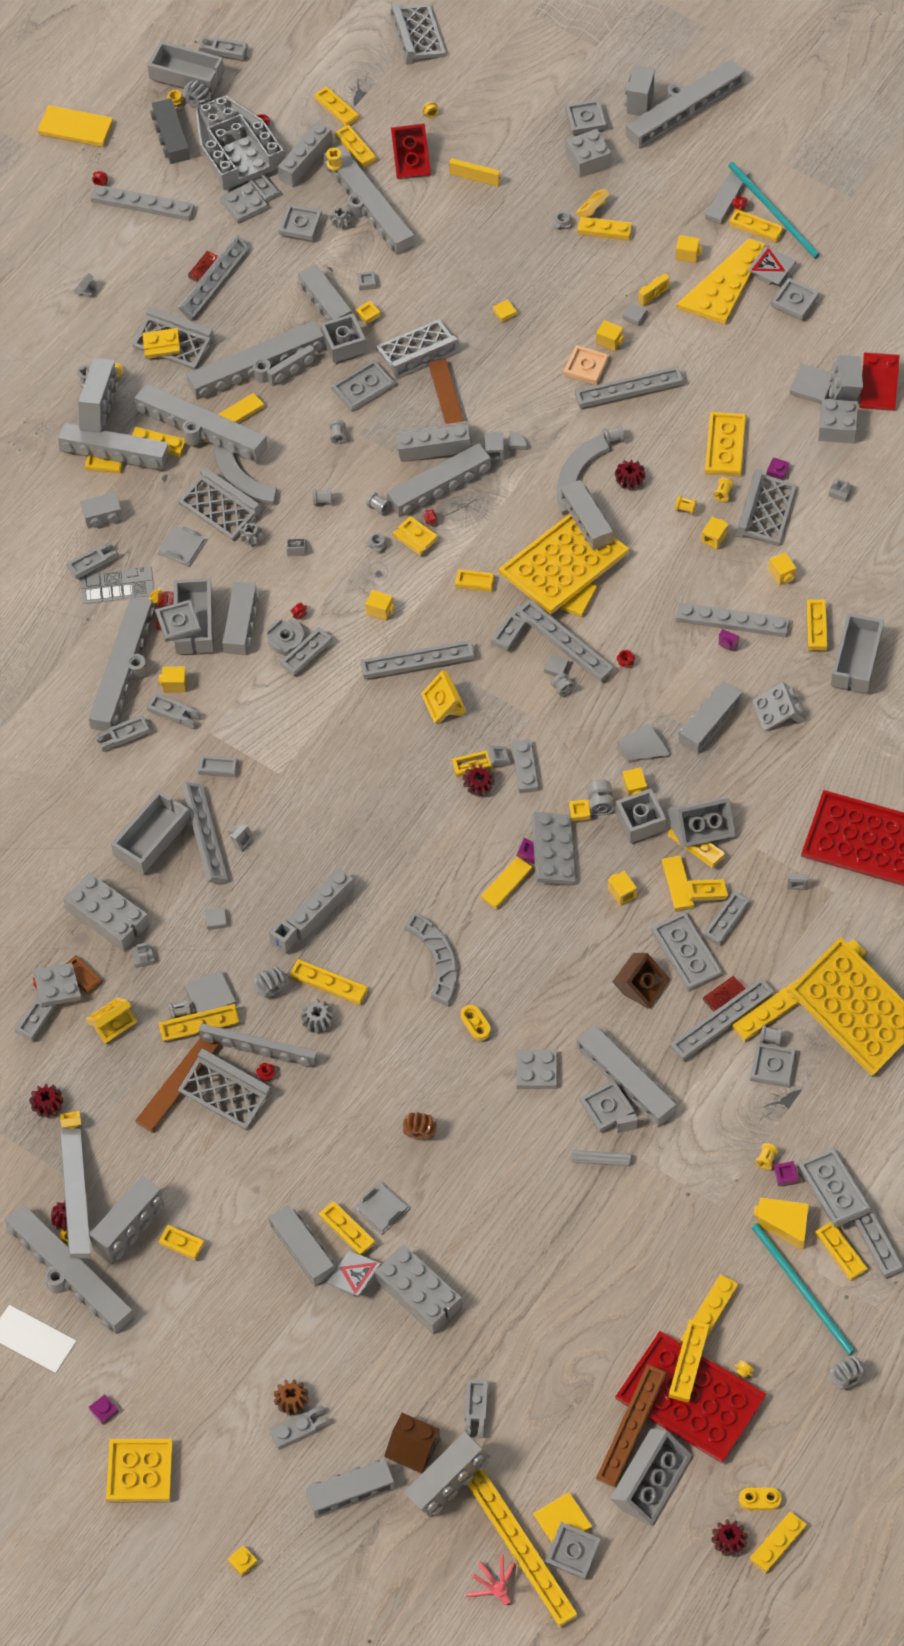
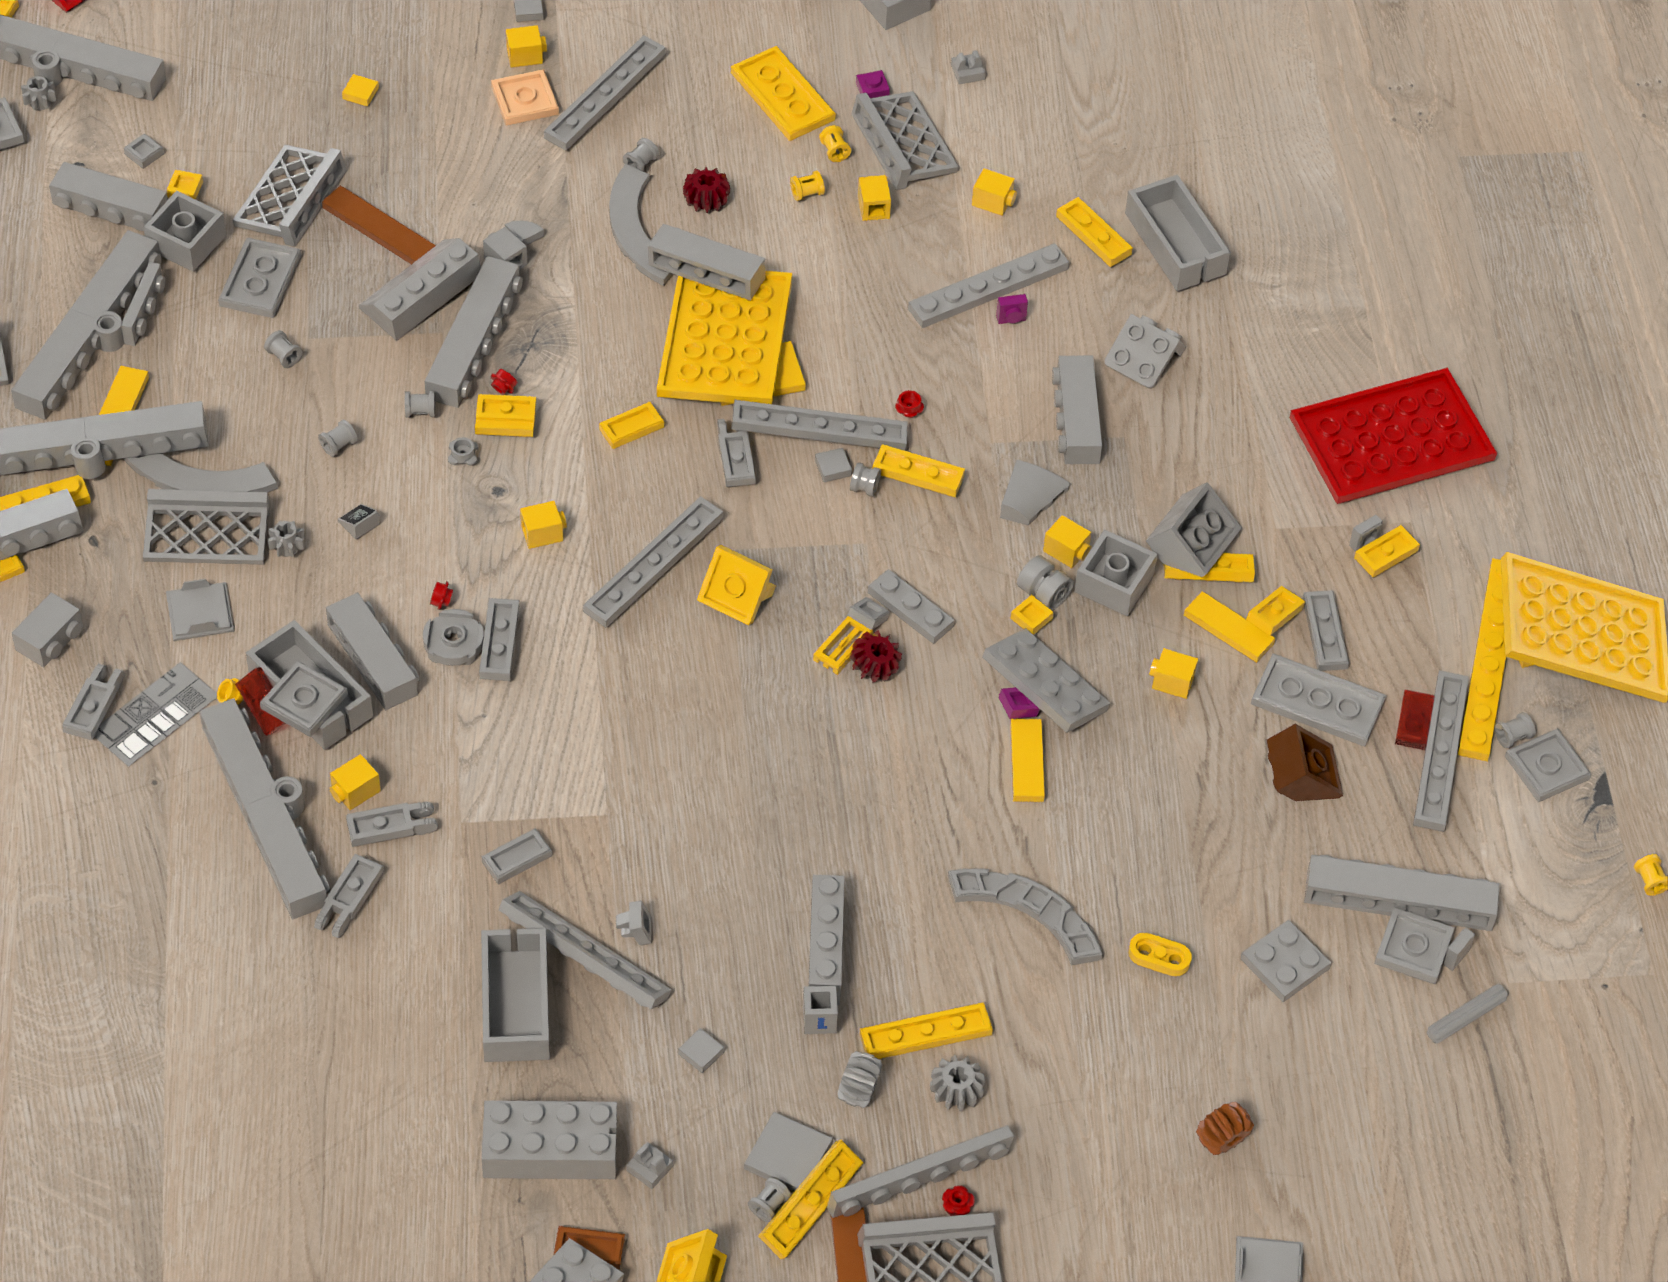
camera: 45 degrees left, 5 degrees down
(595, 697) = (919, 470): none -> yellow plate
(800, 898) = (1386, 551): none -> yellow plate

